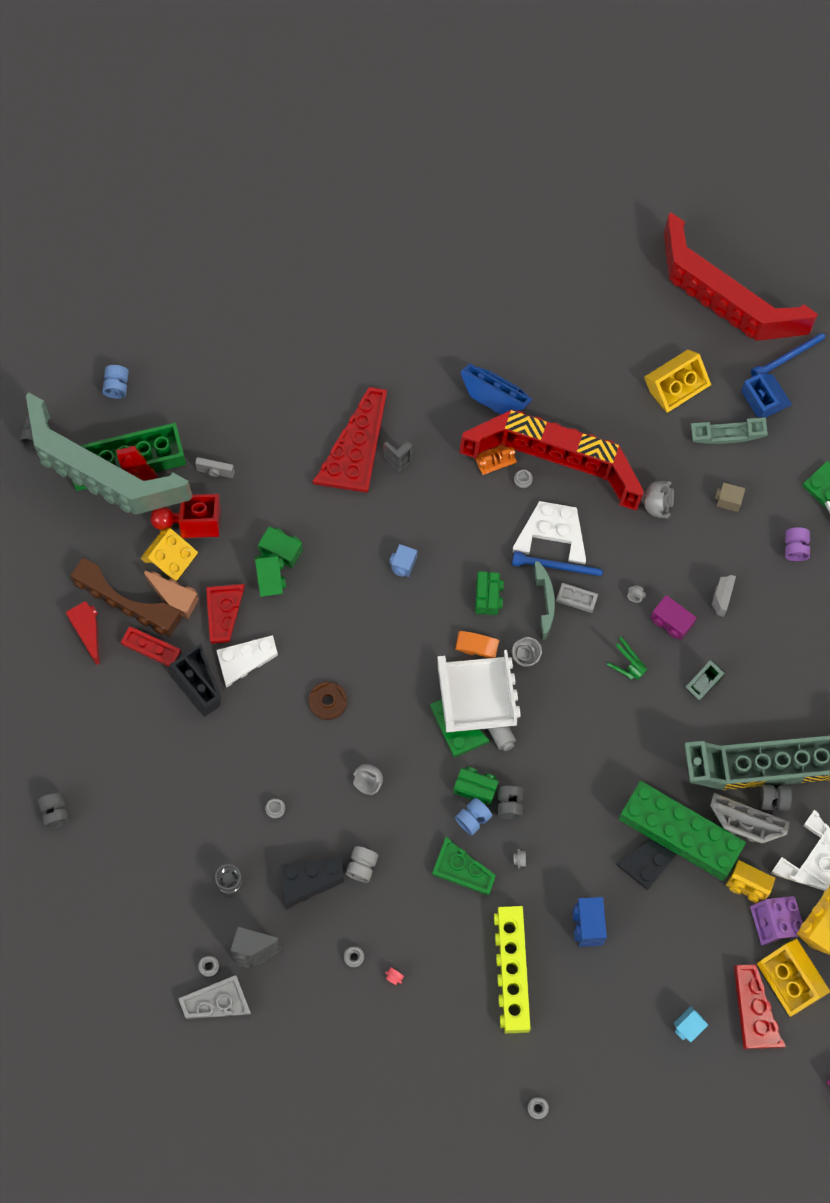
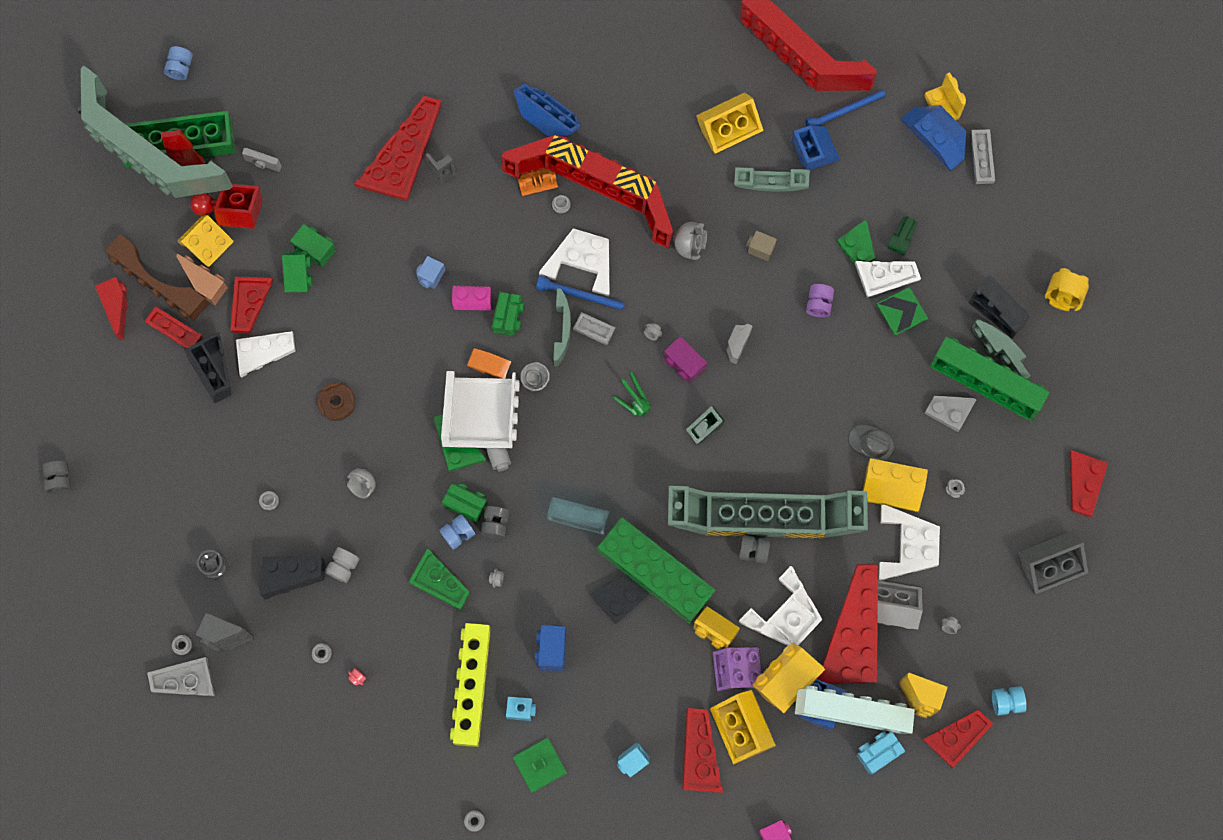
camera: 10 degrees right, 5 degrees up
(450, 581) = (472, 298): none -> dark pink brick
(566, 987) = (520, 708): none -> medium azure brick
(593, 785) = (578, 515): none -> clear light blue brick
(594, 1042) = (539, 765): none -> green piece
(747, 821) = (721, 568): light grey wedge -> none

